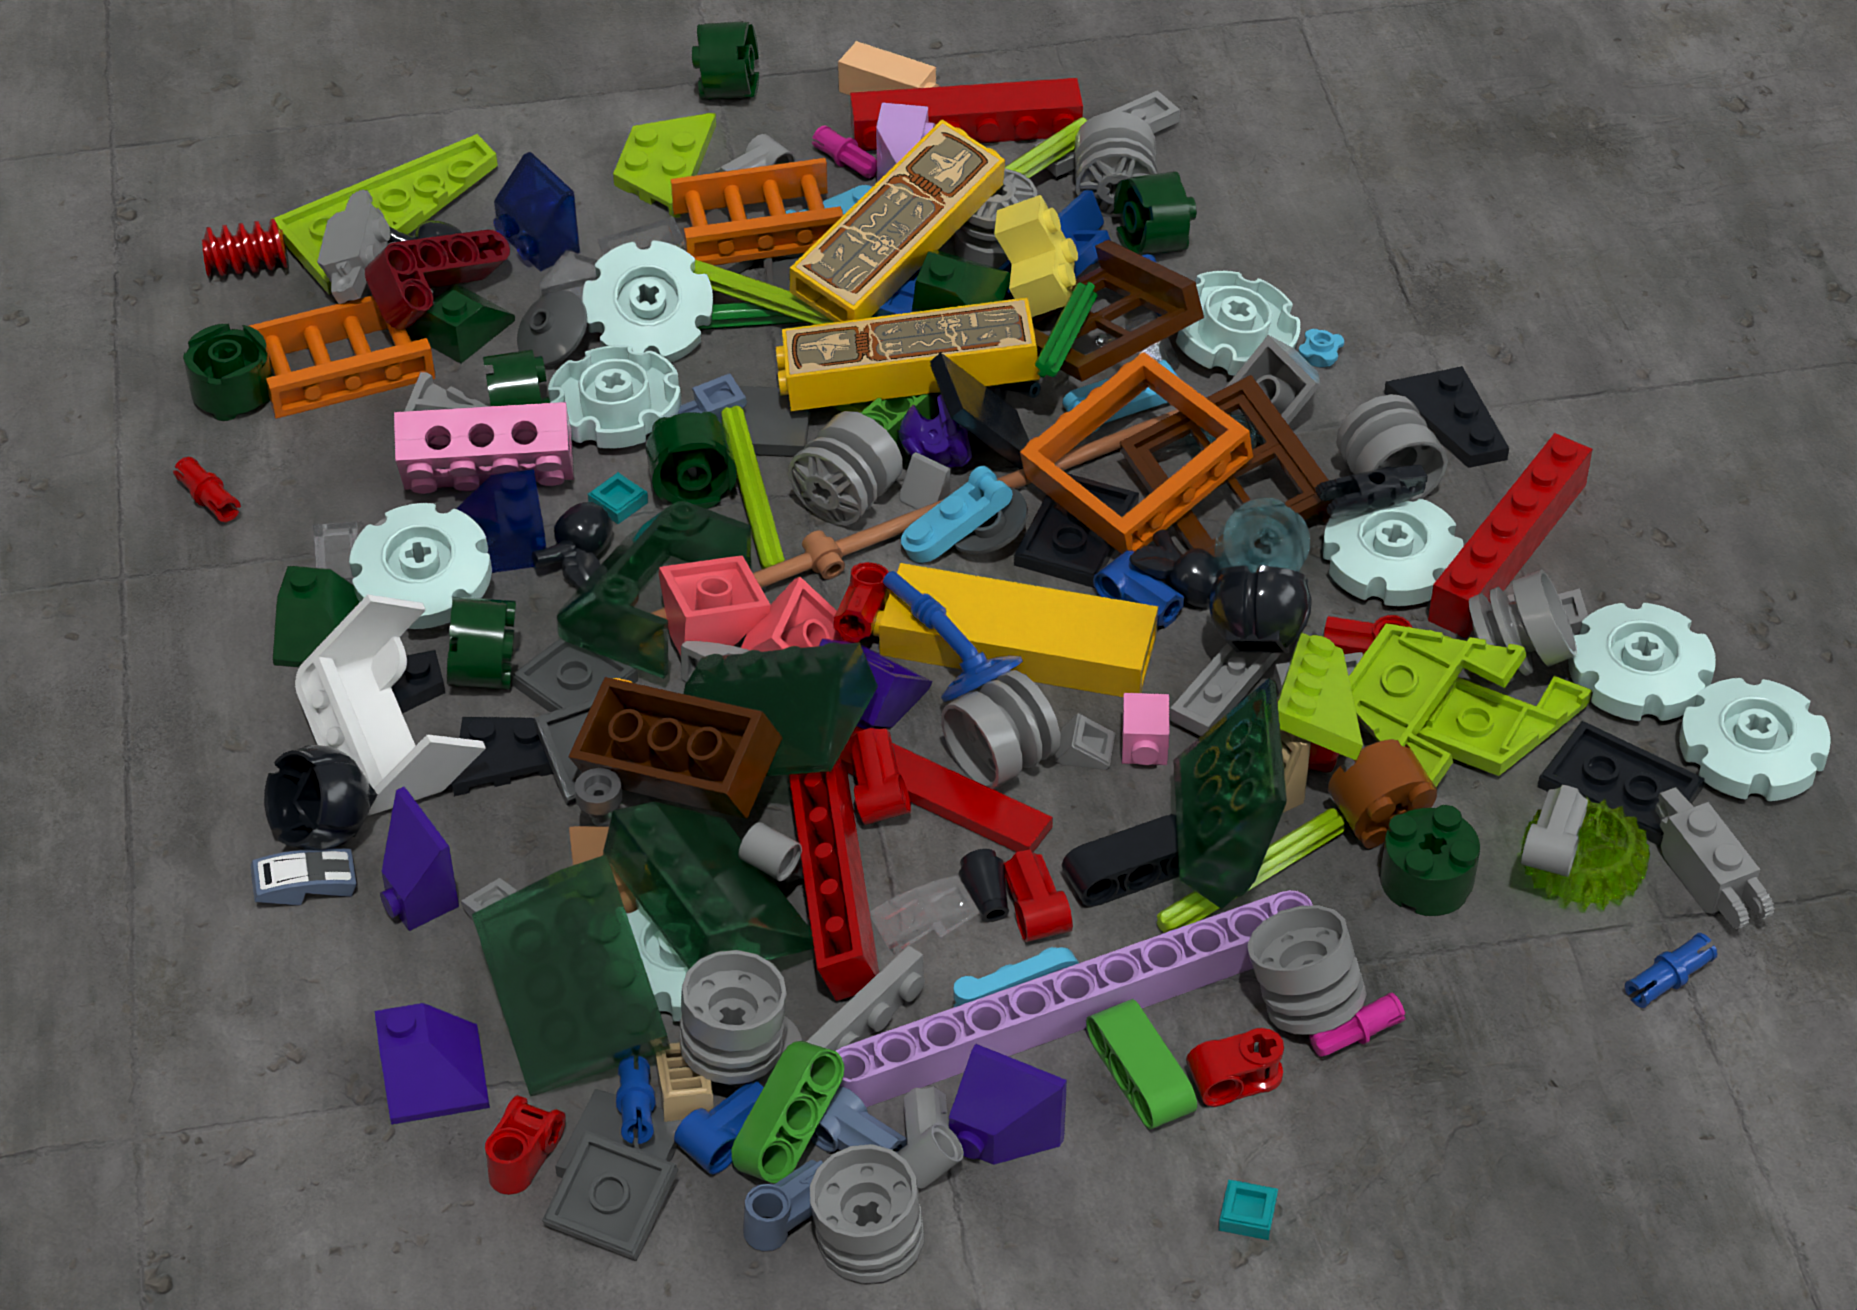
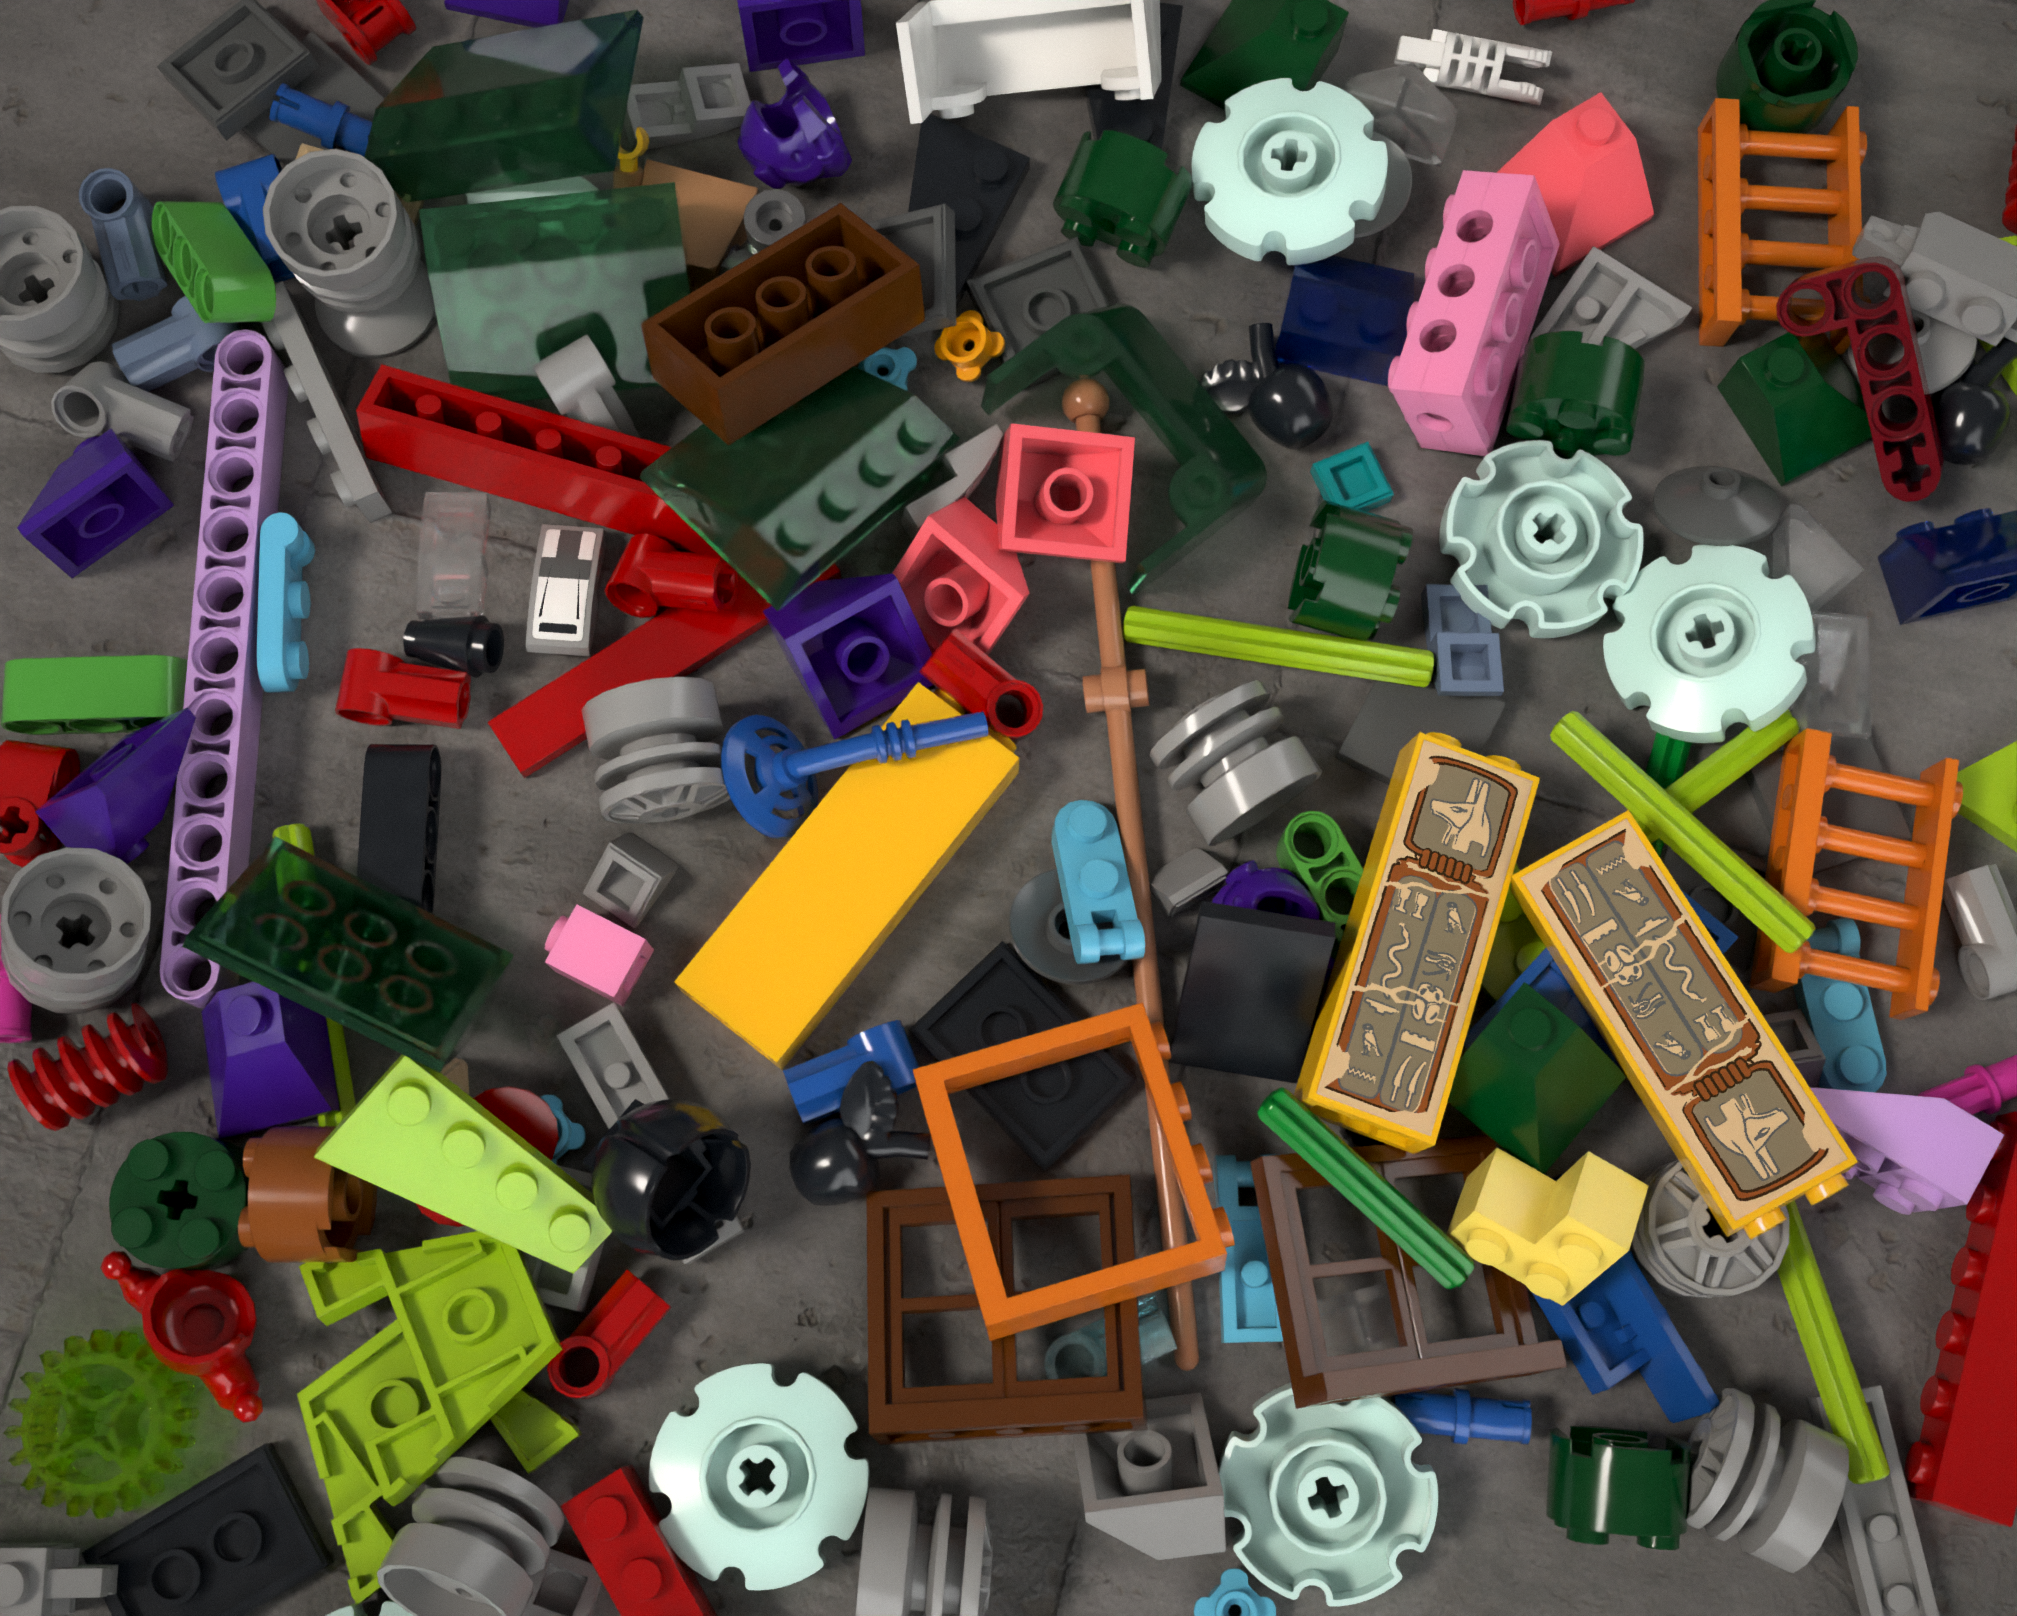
camera: 110 degrees right, 30 degrees up
(284, 521) = (1472, 63): none -> white hinge
(346, 453) = (1587, 178): none -> coral slope
(518, 832) = (795, 137): none -> dark purple helmet
(777, 271) = (1682, 832): none -> lime axle
(922, 838) = (565, 590): none -> slope
(1194, 991) = (122, 791): none -> dark purple slope
(1274, 525) = (818, 1265): clear light blue brick -> none
(1319, 860) = (266, 1061): none -> dark purple slope
(1371, 489) = (831, 1515): black hinge -> none
(1389, 952) = (93, 1073): none -> red piece
(1502, 818) = (196, 1327): none -> red piece
(1555, 837) = (78, 1354): light grey piece -> none

